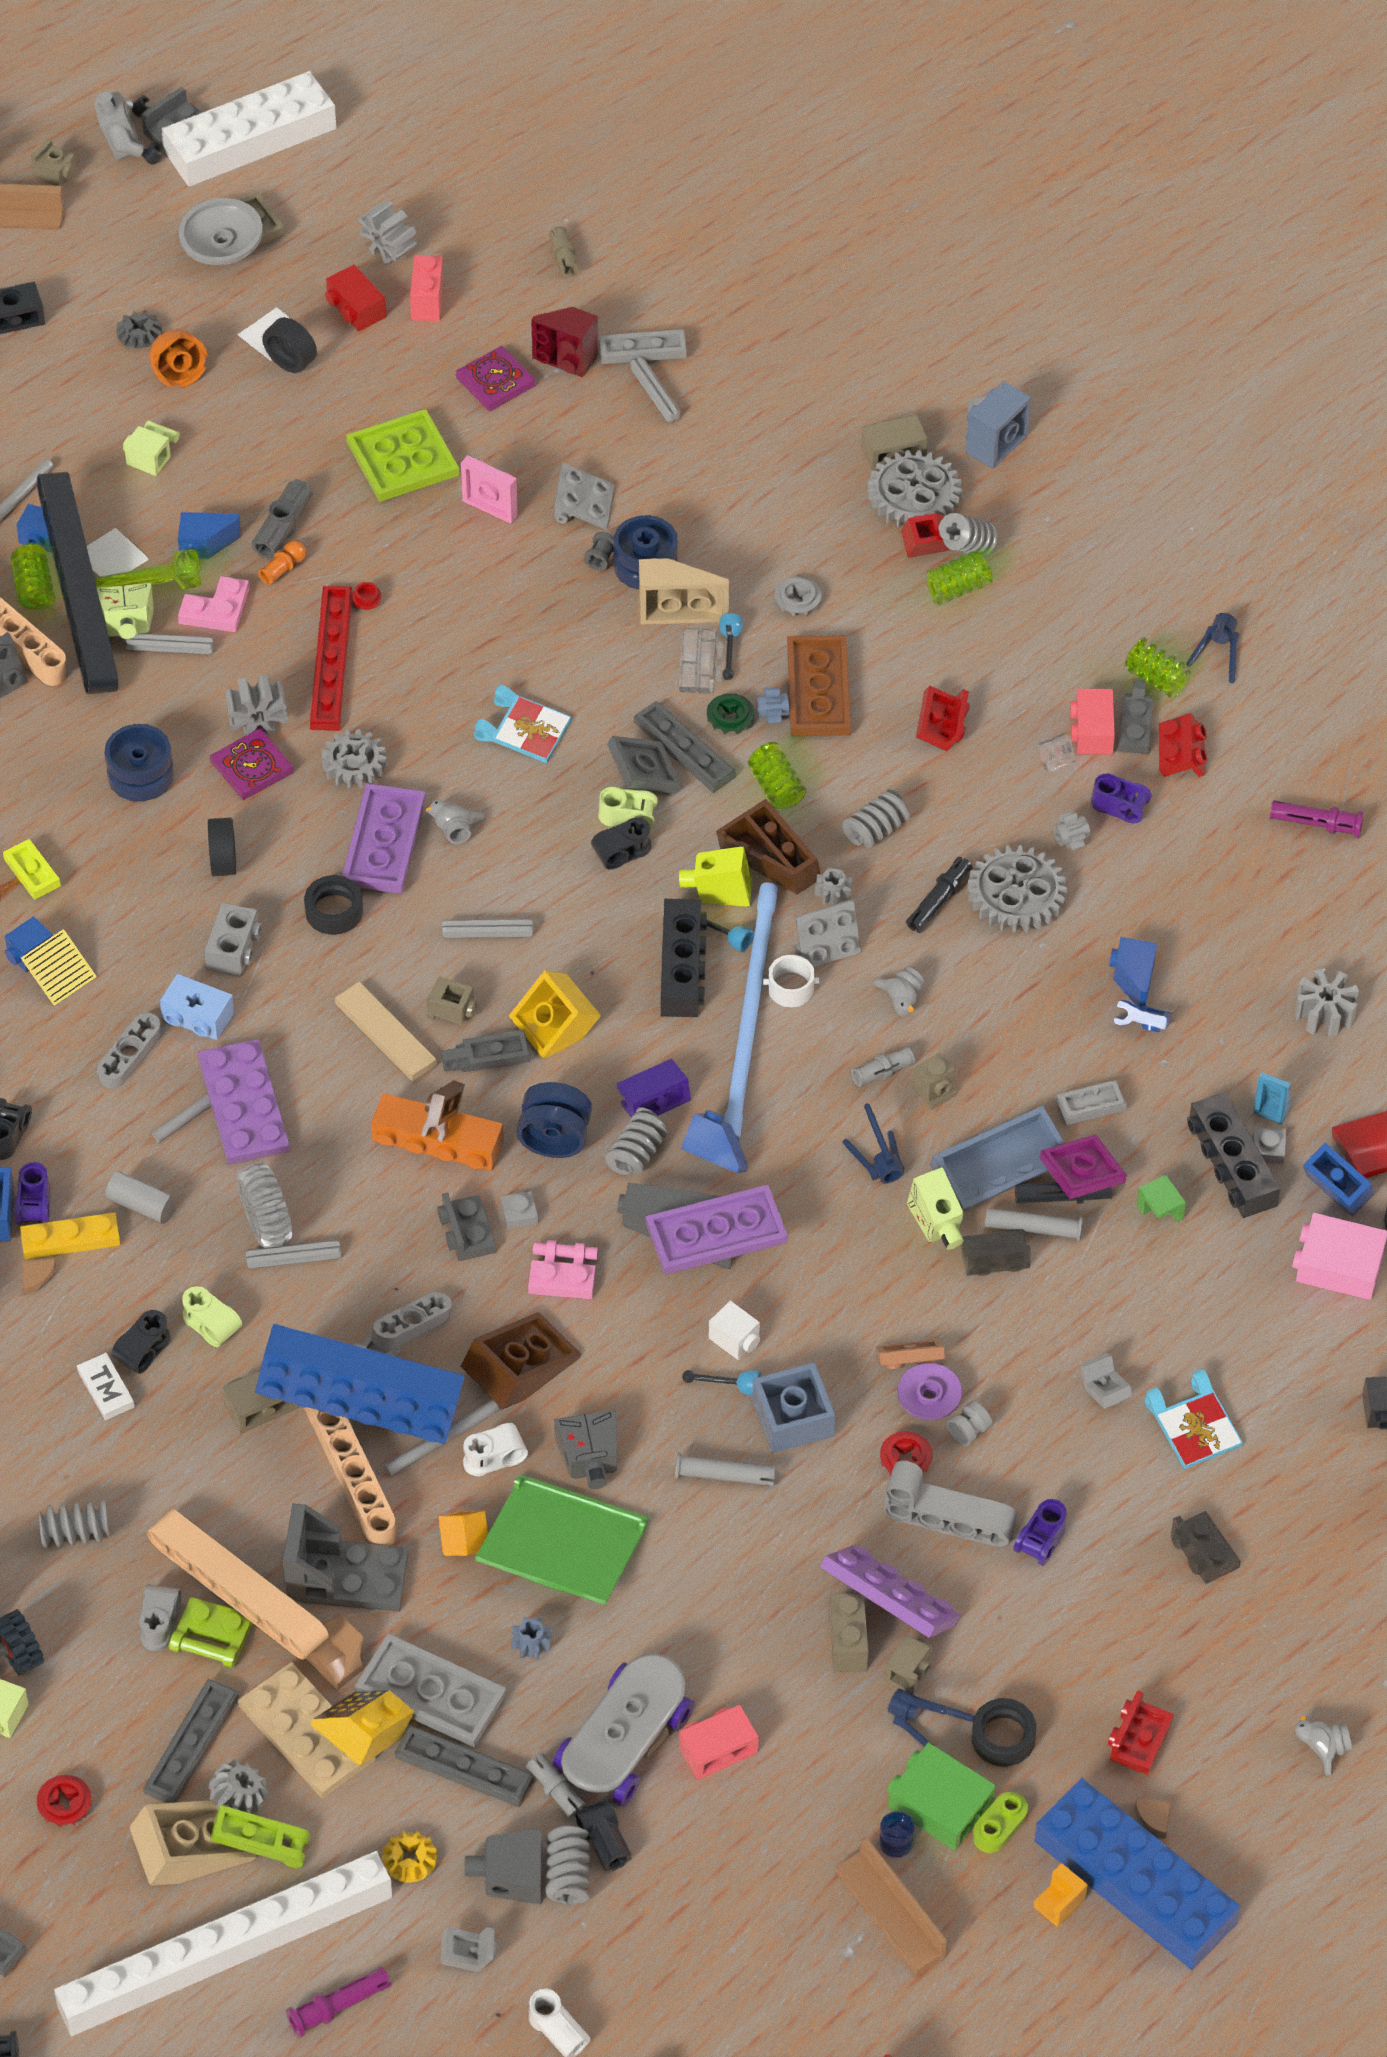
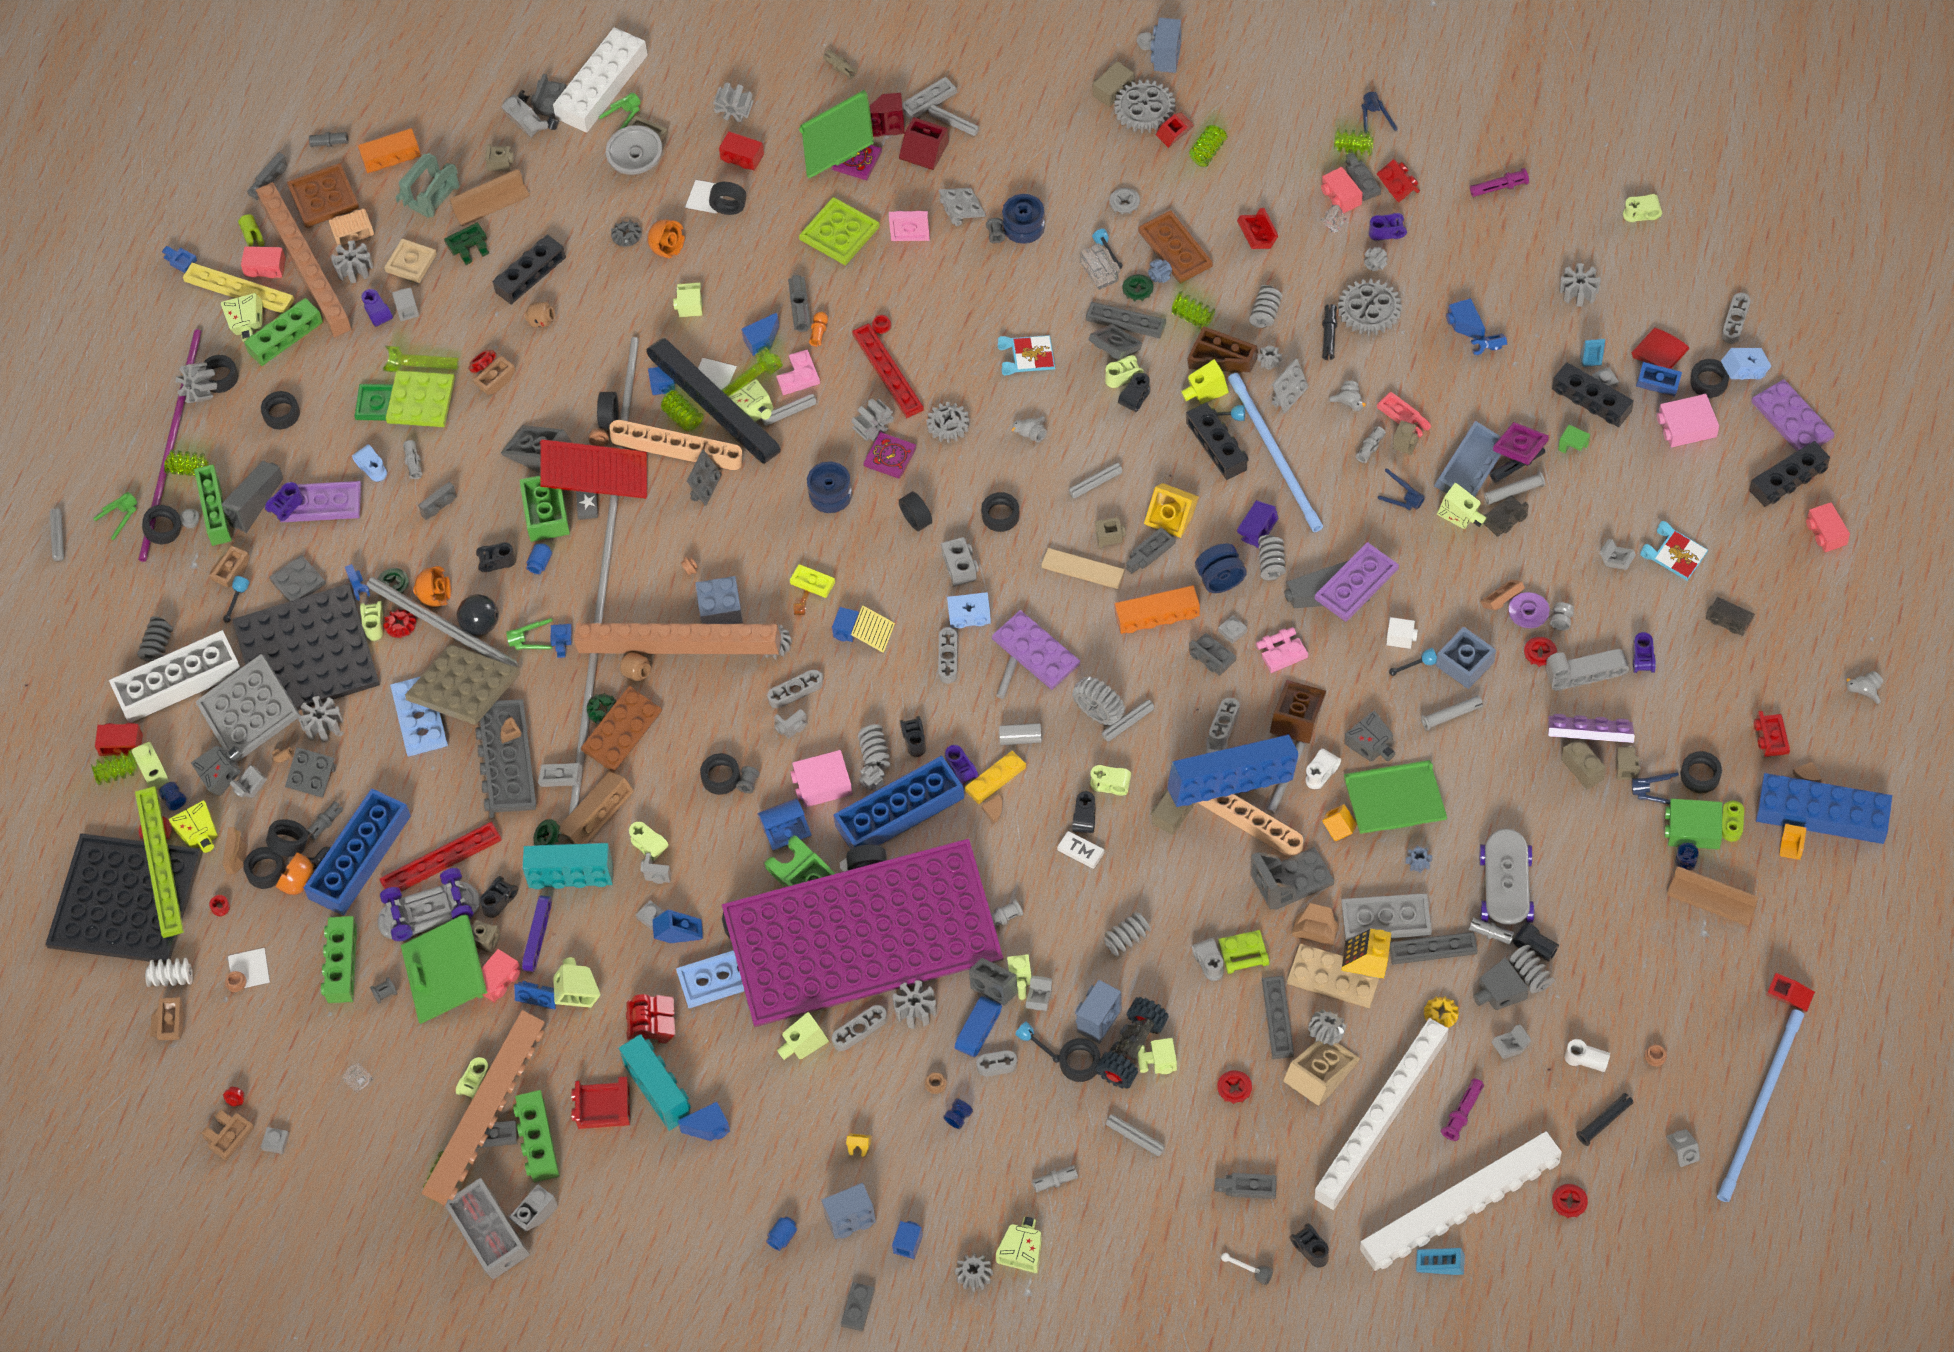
camera: 25 degrees left, 5 degrees up
(237, 1584) = (1242, 917): light nougat beam -> none
(260, 1836) = (1357, 1045): lime plate -> none
(263, 172) = (628, 103): none -> bright green plant
(384, 837) = (999, 458): medium lavender plate -> none
(426, 288) = (779, 125): coral brick -> none
(441, 1107) = (1160, 591): reddish brown plate -> none
(484, 332) = (837, 134): none -> bright green container
(590, 398) = (923, 143): none -> dark red slope
(680, 593) = (1062, 232): tan slope -> none
(714, 1141) = (1313, 534): slope -> none
(718, 1741) = (1558, 860): coral brick -> none
(791, 997) = (1285, 433): white piece -> none
(957, 1047) = (1400, 410): none -> coral hinge
(968, 534) = (1198, 117): light grey piece -> none
(1091, 1102) = (1495, 405): light grey plate -> none

